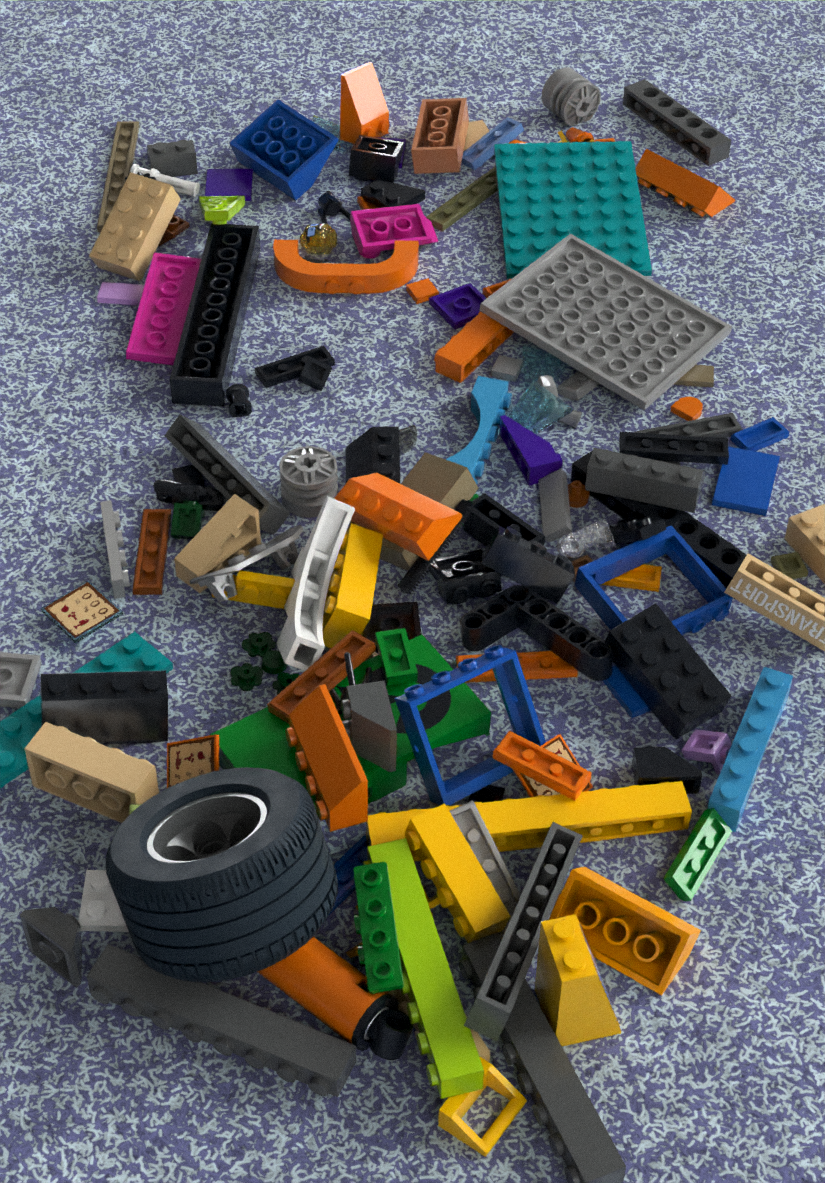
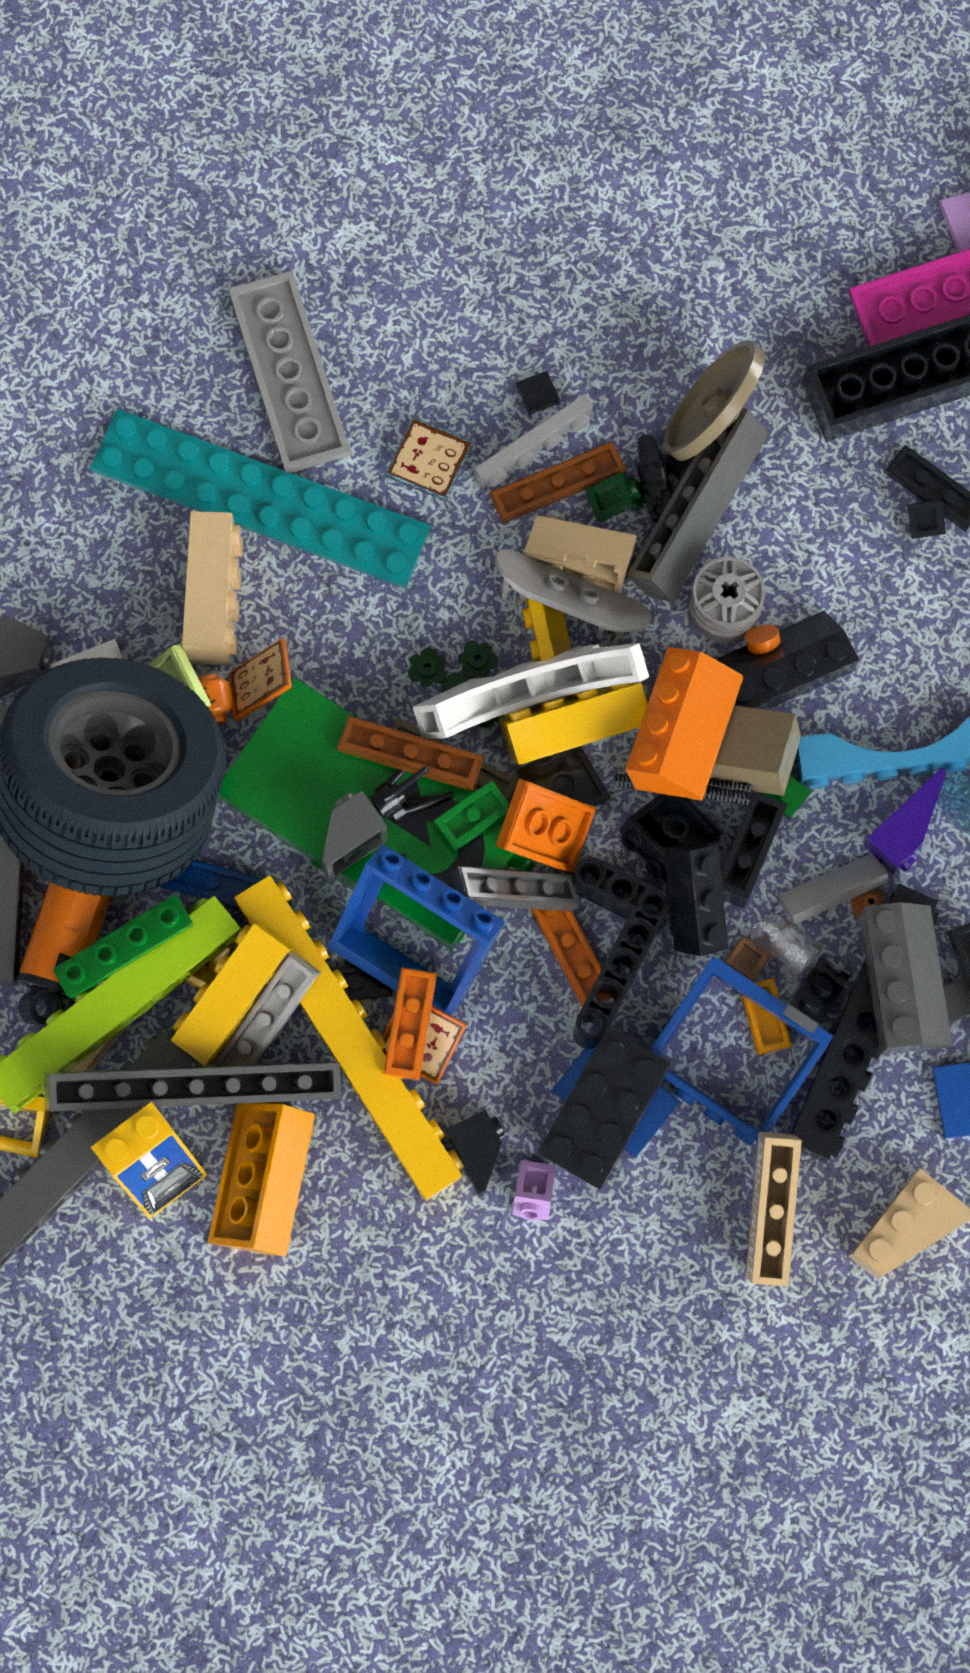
camera: 65 degrees right, 30 degrees up
(75, 538) = (537, 392): none -> black tile
(108, 705) = (299, 553): black slope -> none
(162, 424) = (714, 400): none -> dark tan dish
(240, 400) = (836, 455): black bush -> none
(328, 761) = (289, 812): orange slope -> none
(348, 471) = (762, 639): none -> orange tile
(407, 438) = (871, 672): clear smoke tile -> none
(425, 626) = (545, 826): none -> orange tile
(465, 651) = (516, 888): none -> dark grey tile
(697, 855) = (385, 1223): green plate -> none
(749, 746) = (551, 1231): dark azure arch -> none
(790, 565) = (865, 1192): olive tile -> none

